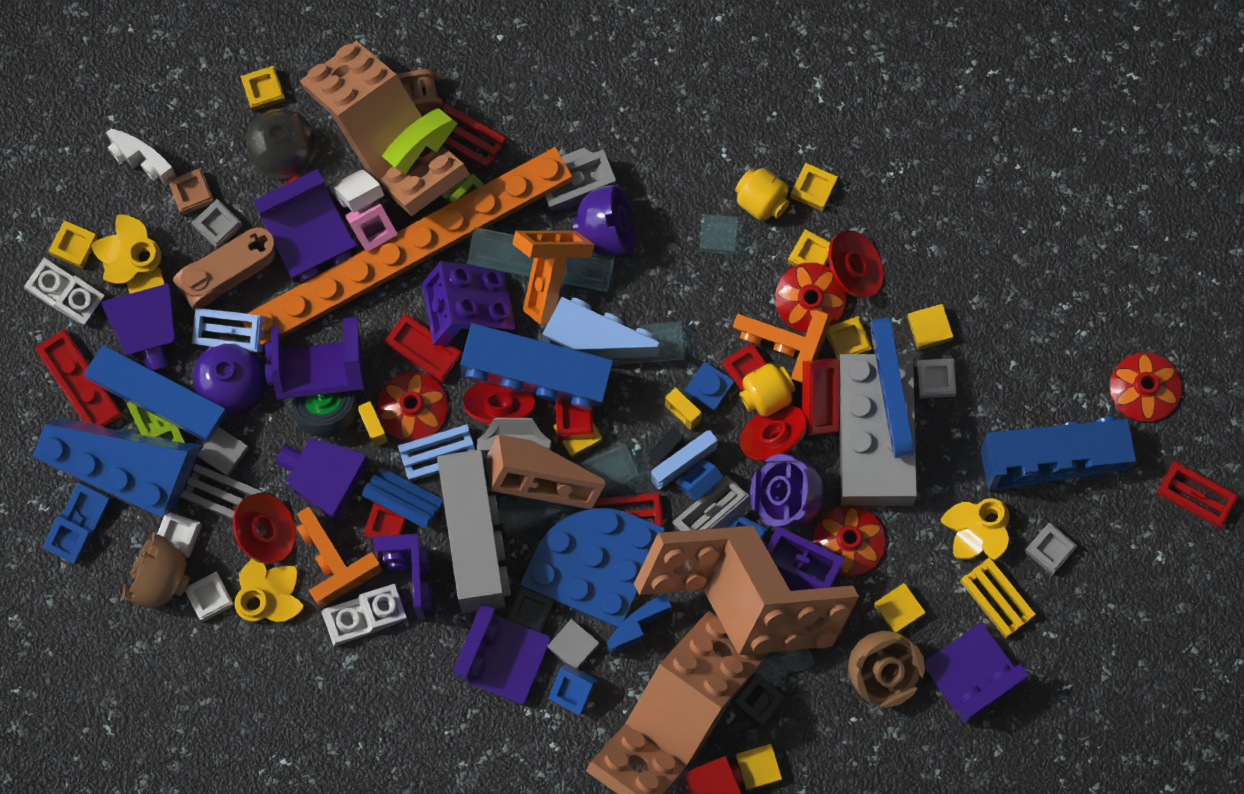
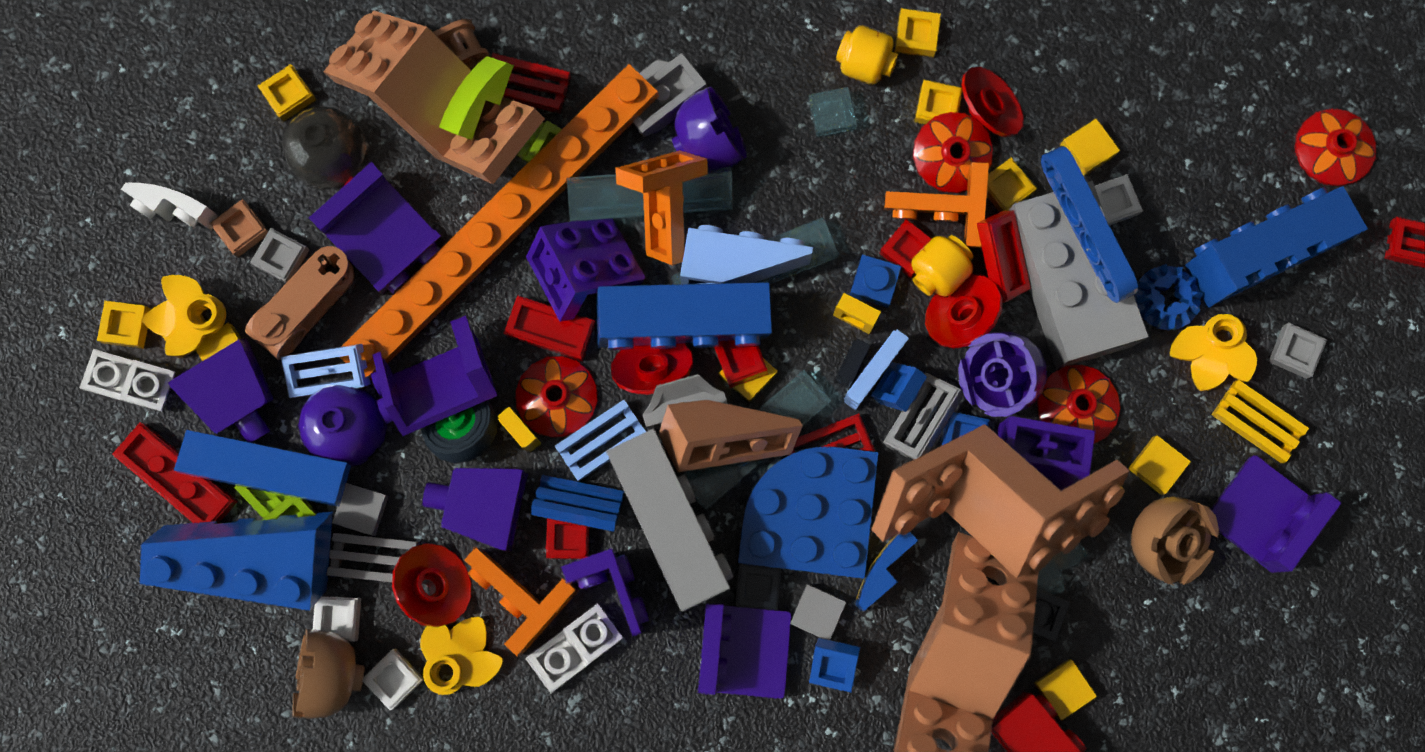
camera: 20 degrees left, 5 degrees up
(78, 522) = (218, 642): blue slope -> none
(357, 190) = (423, 174): white slope -> none
(369, 220) = (444, 202): bright pink brick -> none
(957, 488) = (1151, 302): none -> blue gear

